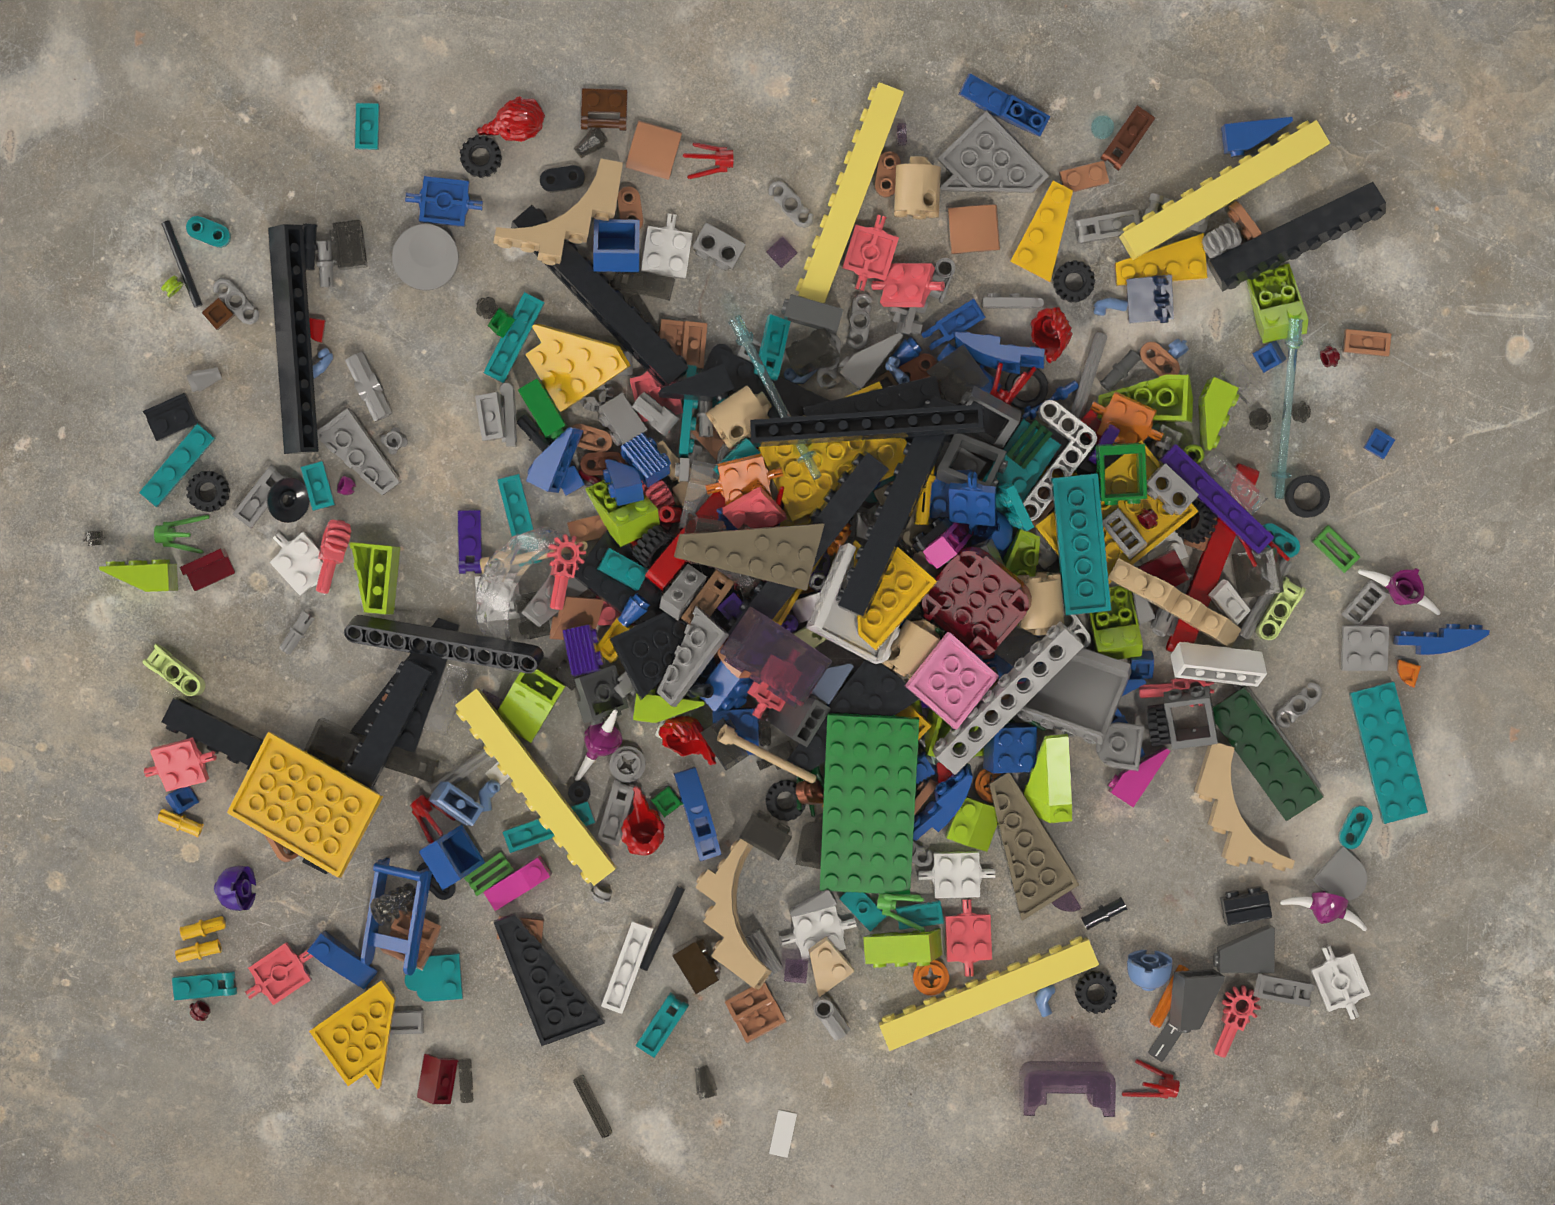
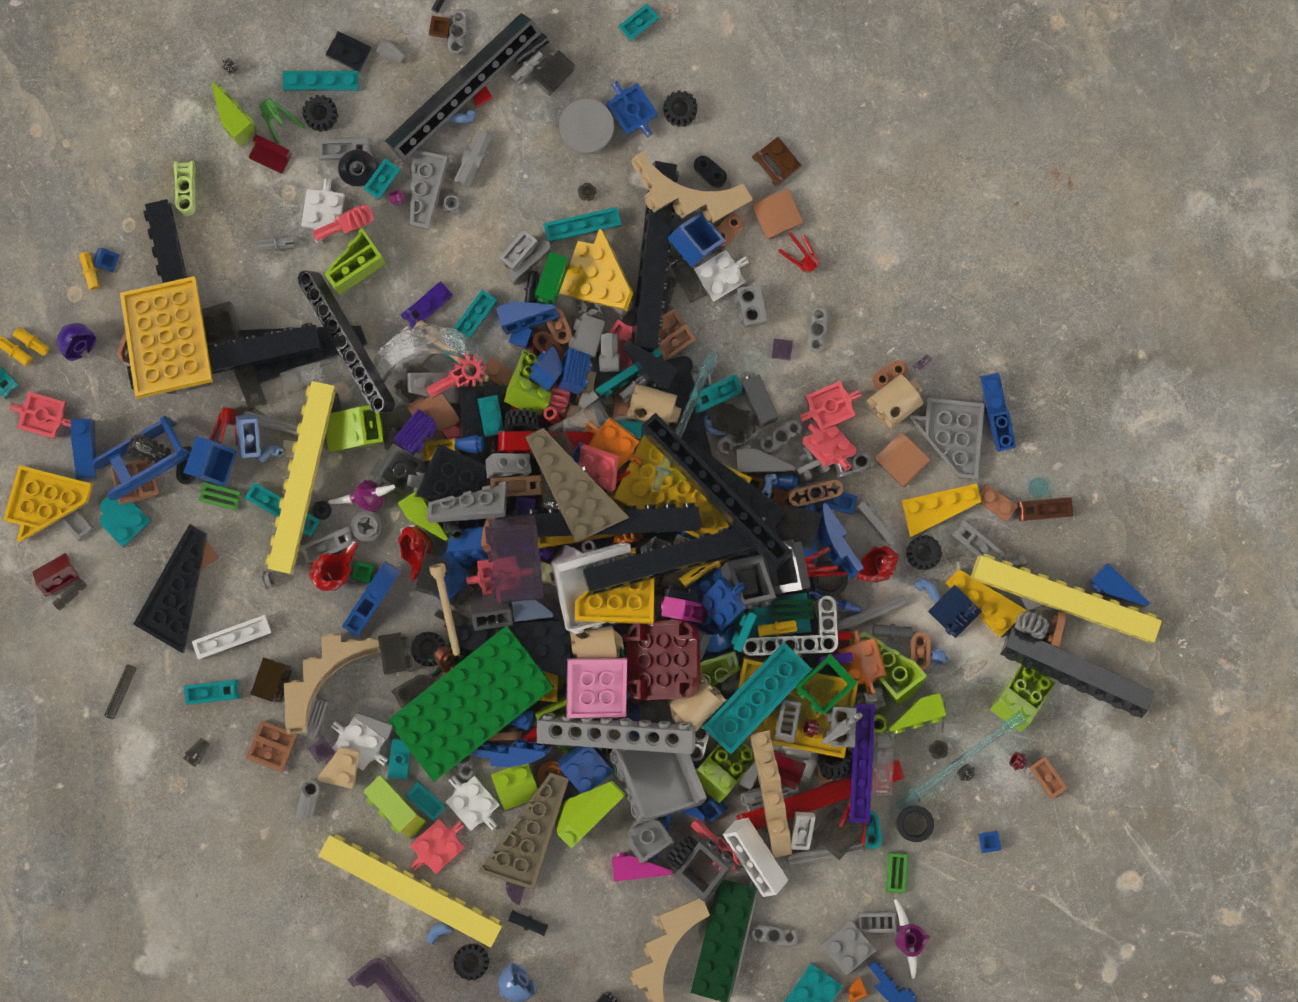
camera: 50 degrees right, 5 degrees down
(180, 764) = (127, 239): coral plate -> none
(501, 322) = (585, 208): green tile -> none
(516, 121) = (722, 111): red hair -> none
(518, 883) = (229, 520): dark pink slope -> none
(592, 141) = (748, 170): clear smoke cone -> none
(664, 923) = (276, 639): black bar -> none
(783, 1133) = (205, 833): white sticker -> none
(851, 193) = (857, 361): light yellow brick -> none
(889, 901) = (417, 772): bright green plant -> none
(937, 351) = (800, 490): none -> medium nougat beam
(939, 983) = (390, 853): orange gear -> none
(1033, 473) = (777, 628): none -> yellow axle
(1173, 492) = (842, 728): none -> light grey piece
(1269, 356) = (984, 721): blue slope -> none
(1288, 601) = (836, 868): yellowish green piece -> none

